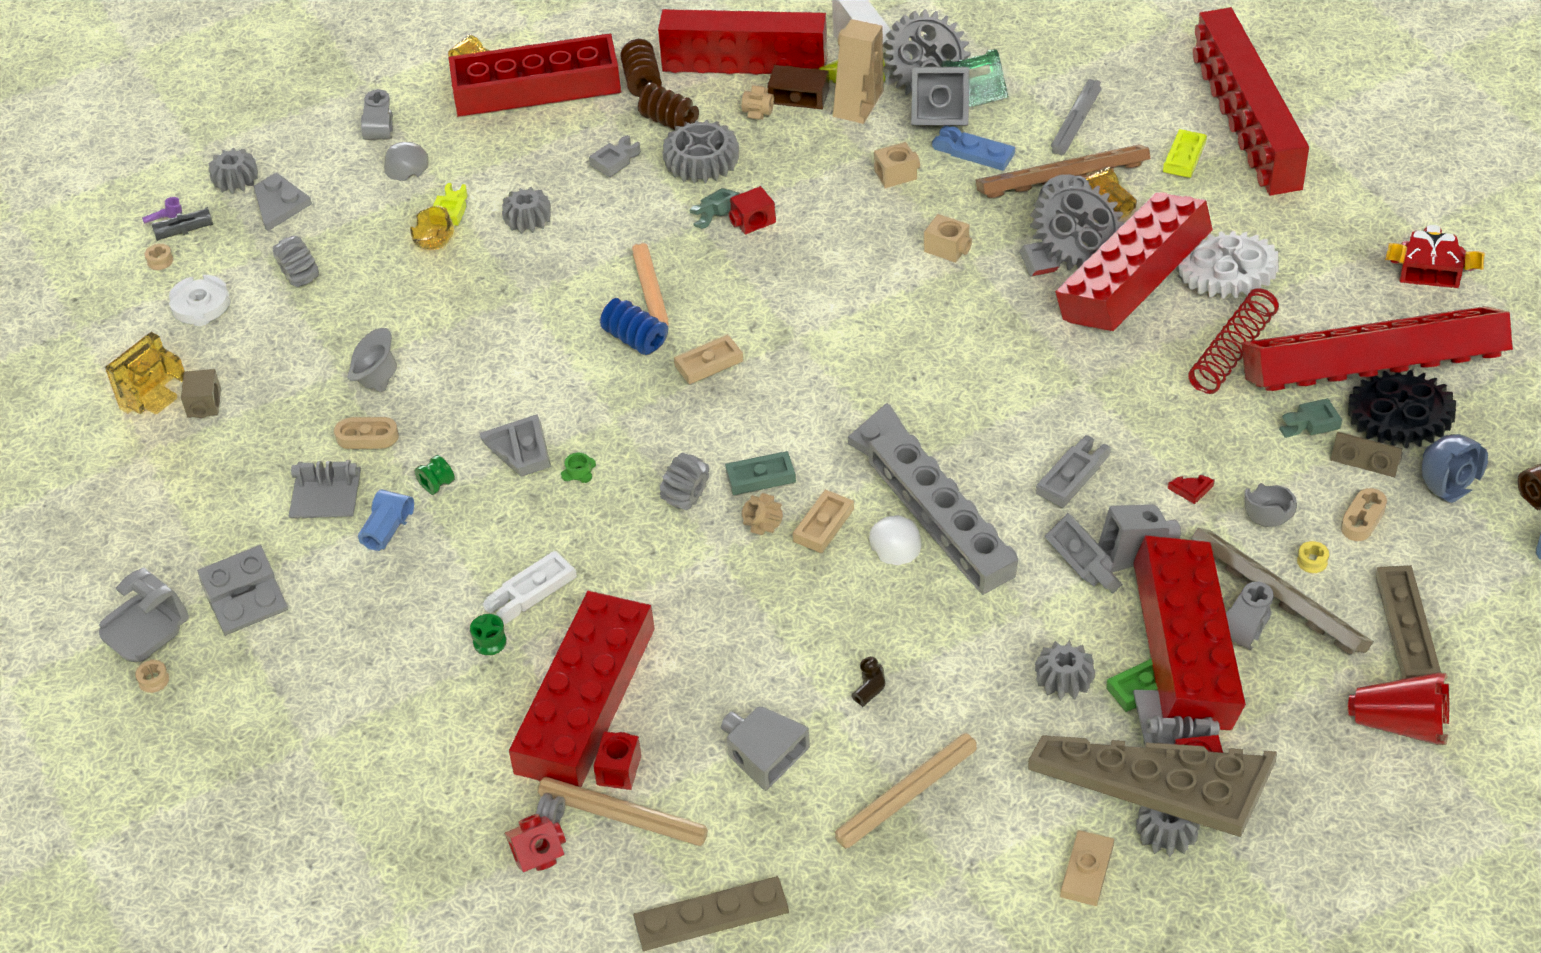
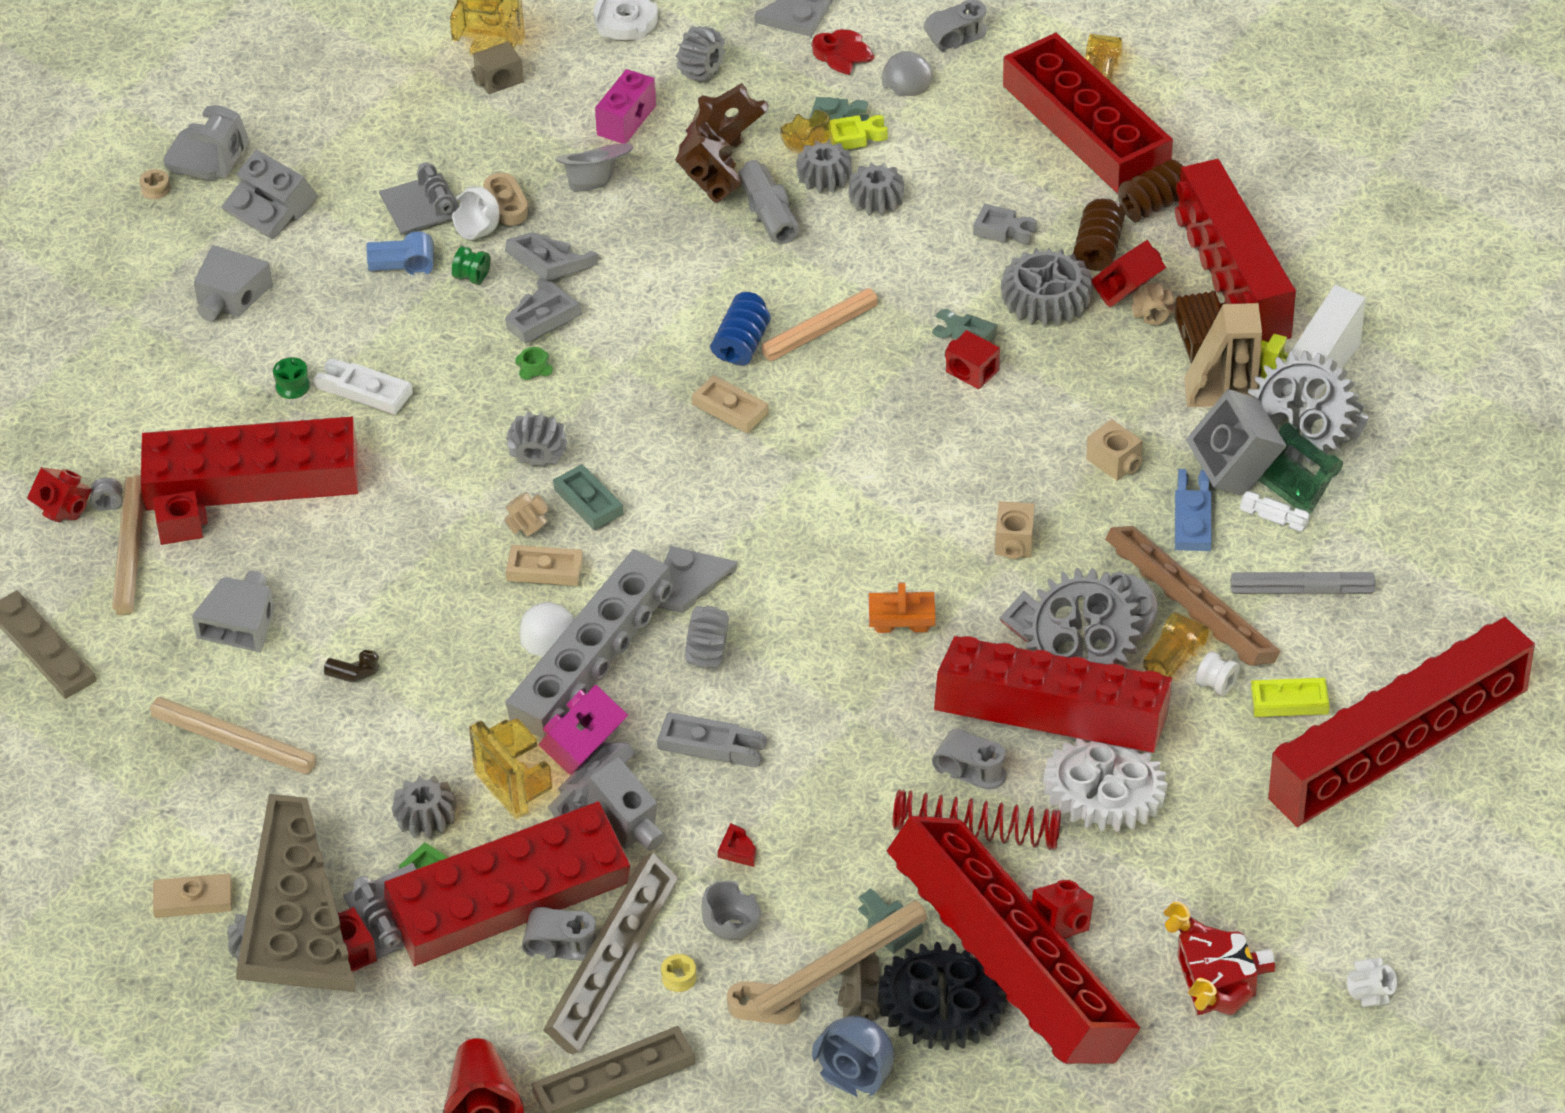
camera: 65 degrees right, 0 degrees up
(318, 325) = (625, 106): none -> dark pink brick
(333, 648) = (230, 282): none -> light grey torso
(341, 190) = (841, 49): none -> red plate
(377, 452) = (476, 214): none -> white hair
(407, 213) = (839, 108): none -> sand green plate
(413, 291) = (707, 148): none -> reddish brown hips
(456, 424) = (548, 256): none -> light grey wing
(478, 231) = (824, 166): none -> light grey gear
(494, 274) = (768, 202): none -> light grey piece
(731, 97) = (1128, 273): none -> red brick
(972, 435) = (706, 637): none -> light grey gear
(998, 109) = (1274, 511): none -> white axle
(999, 320) = (901, 610): none -> orange hips
(1036, 538) = (596, 714): none -> dark pink brick
(1063, 594) = (496, 764): none -> clear yellow panel
(1148, 178) = (1217, 673): none -> white wheel
(1169, 326) = (968, 756): none -> light grey piece
(1347, 311) = (1065, 907): none -> red brick
(1361, 445) = (840, 959): none -> tan axle
(1474, 189) = (1371, 982): none -> white gear

